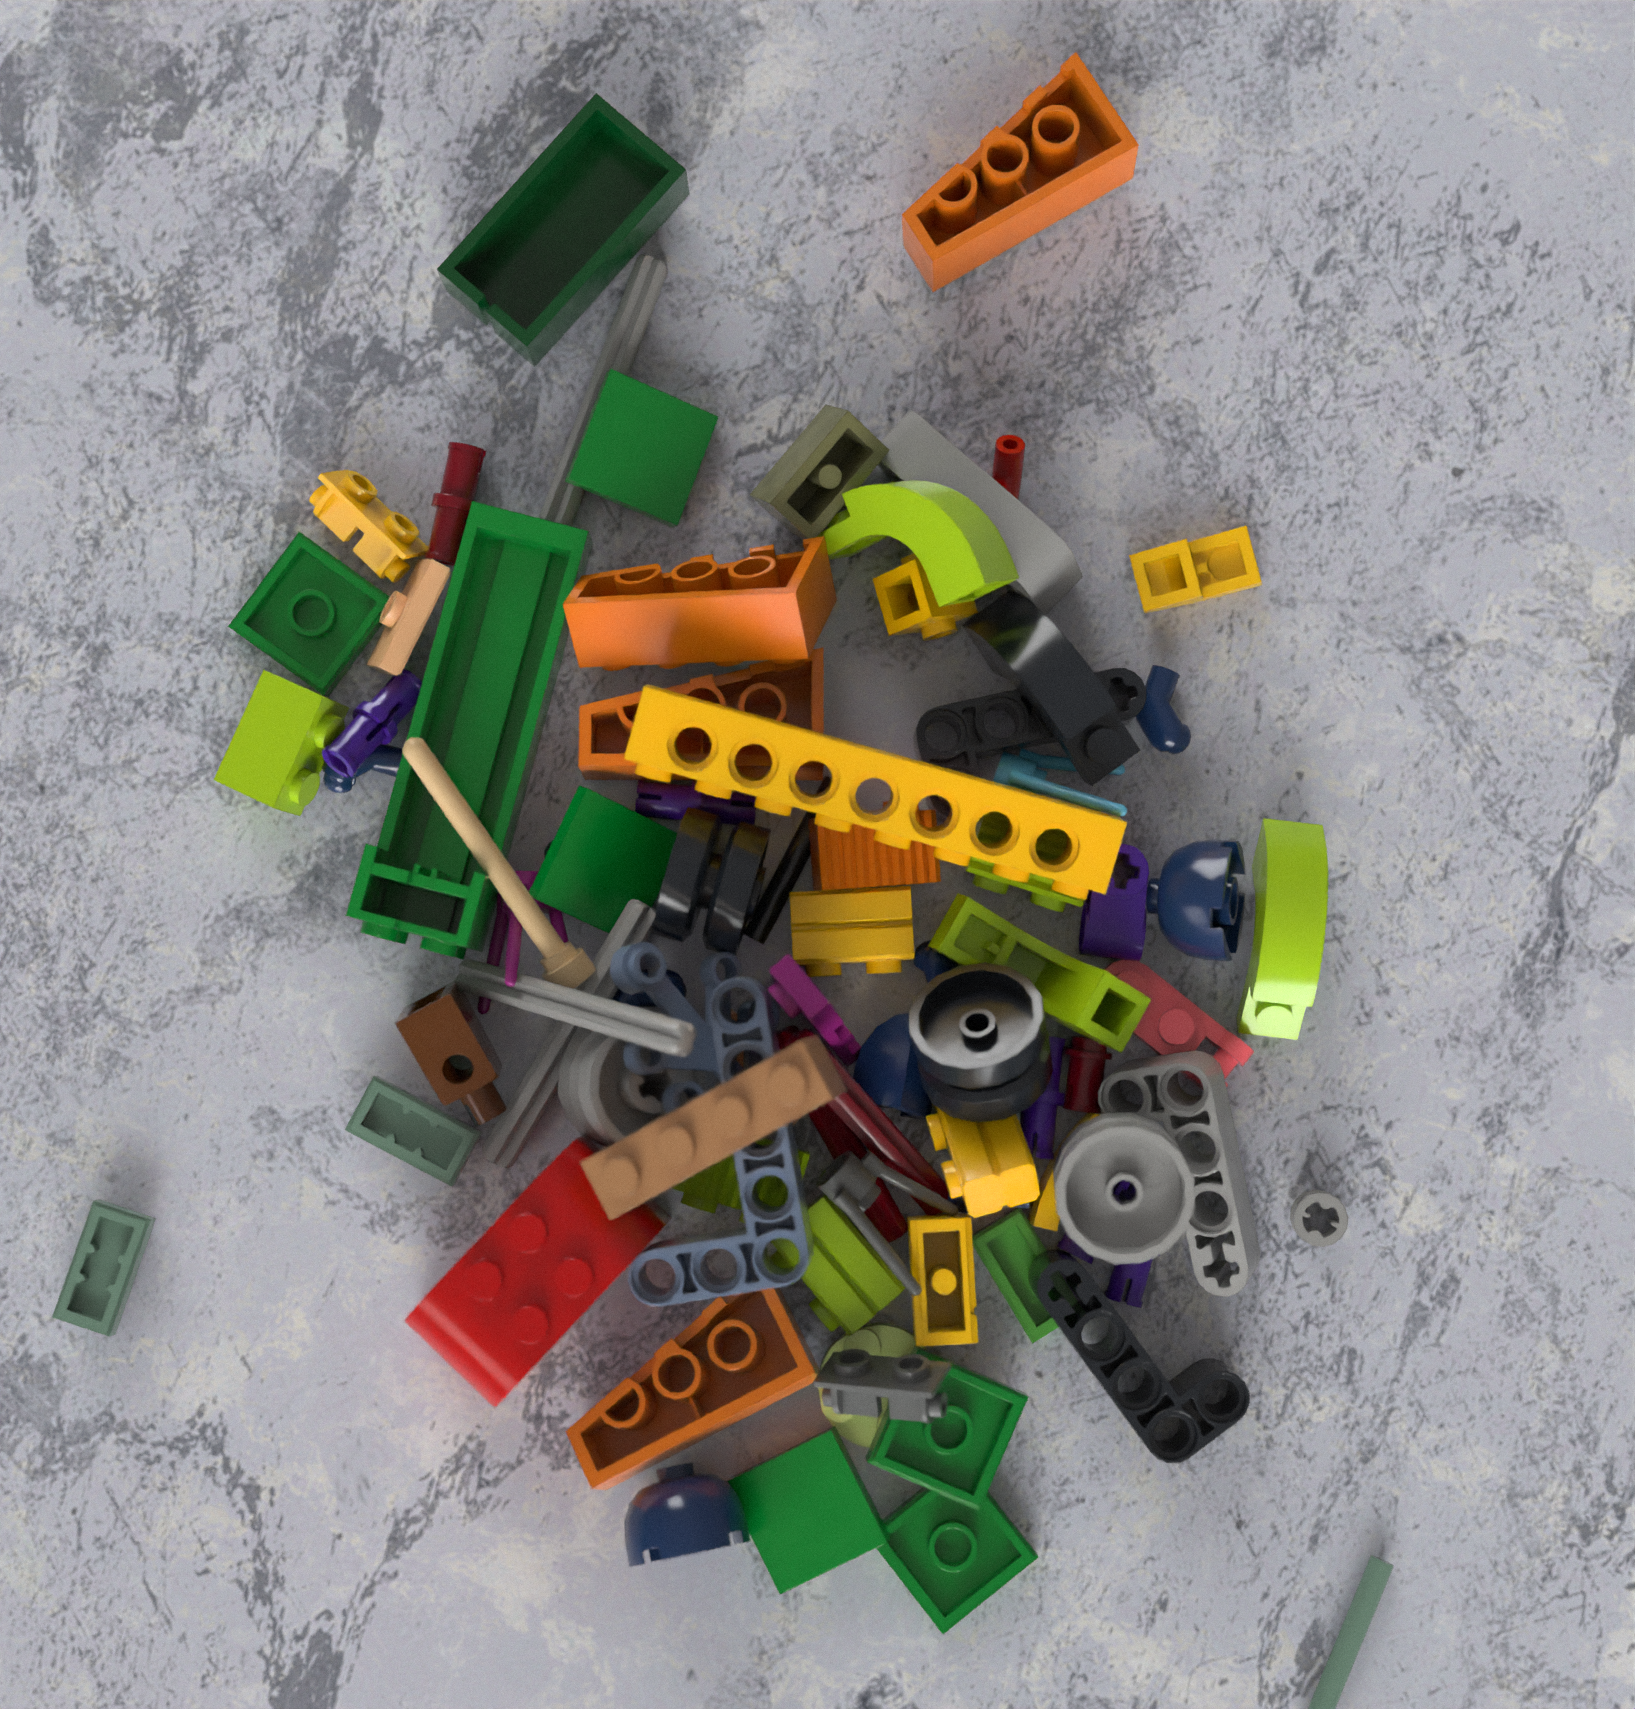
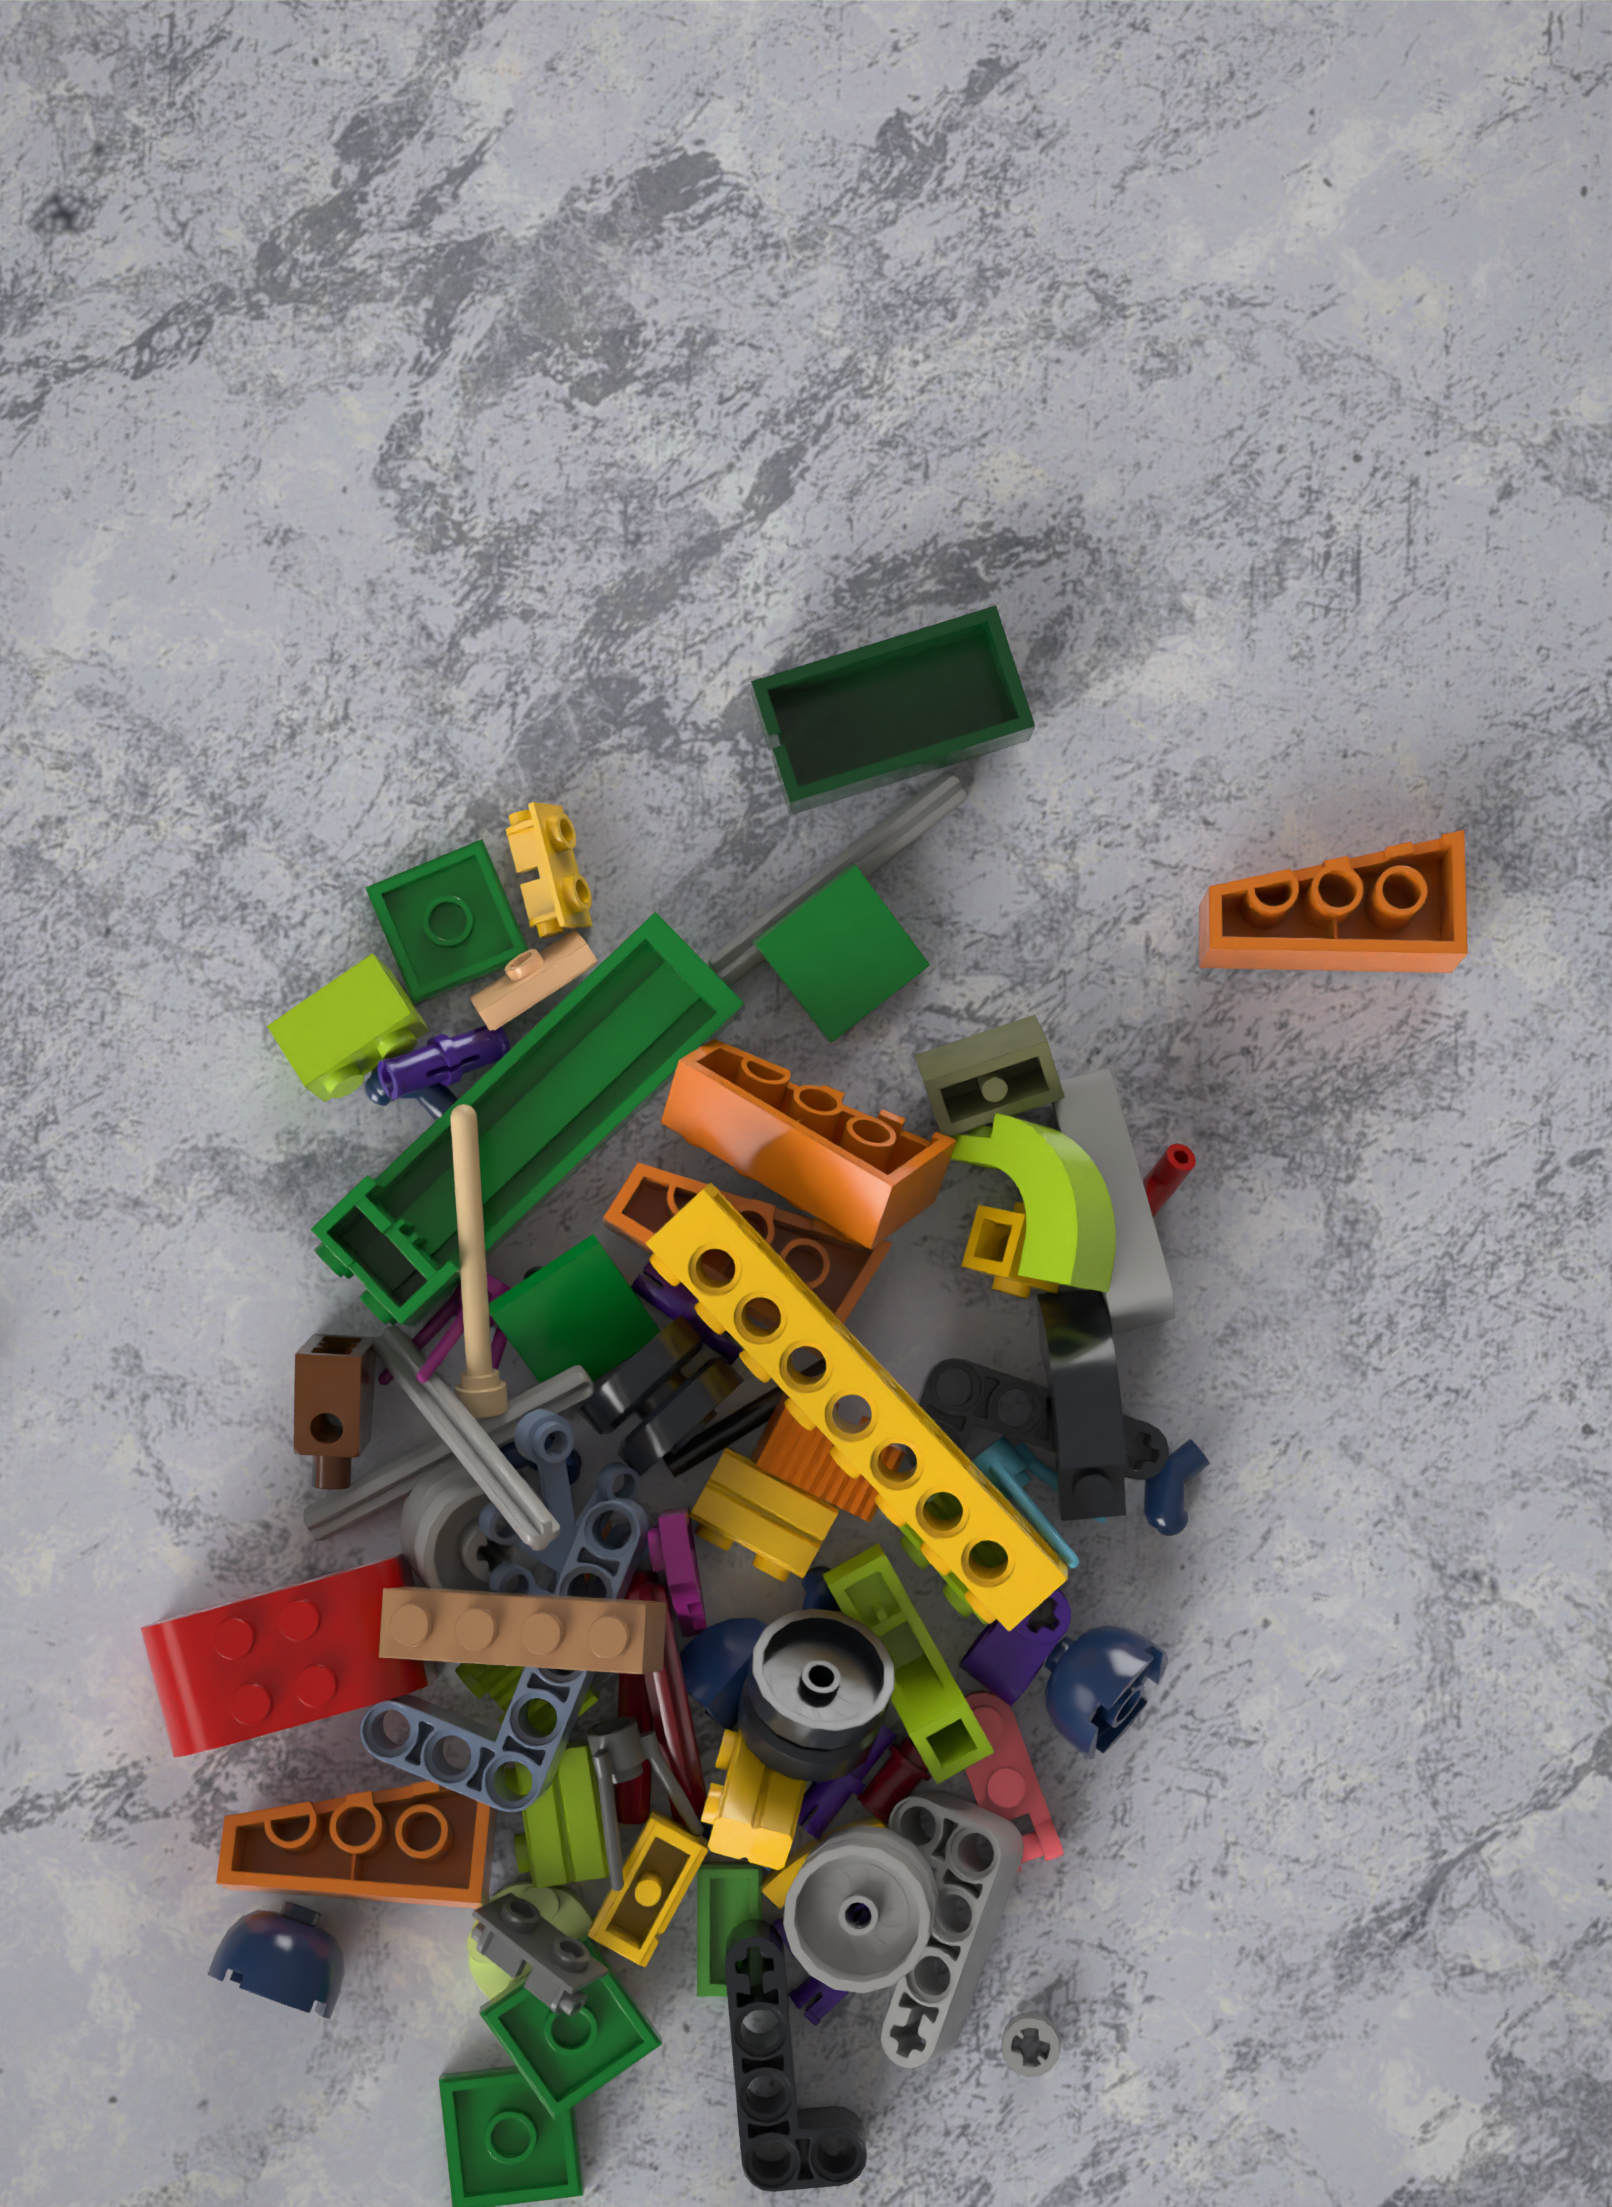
camera: 30 degrees right, 0 degrees up
(413, 1130) = (253, 1454): sand green plate -> none
(454, 501) = (640, 899): dark red pin -> none
(808, 1510) = (400, 2022): green tile -> none
(1195, 570) = (1285, 1374): yellow slope -> none
(1288, 928) = (1163, 1759): lime arch -> none

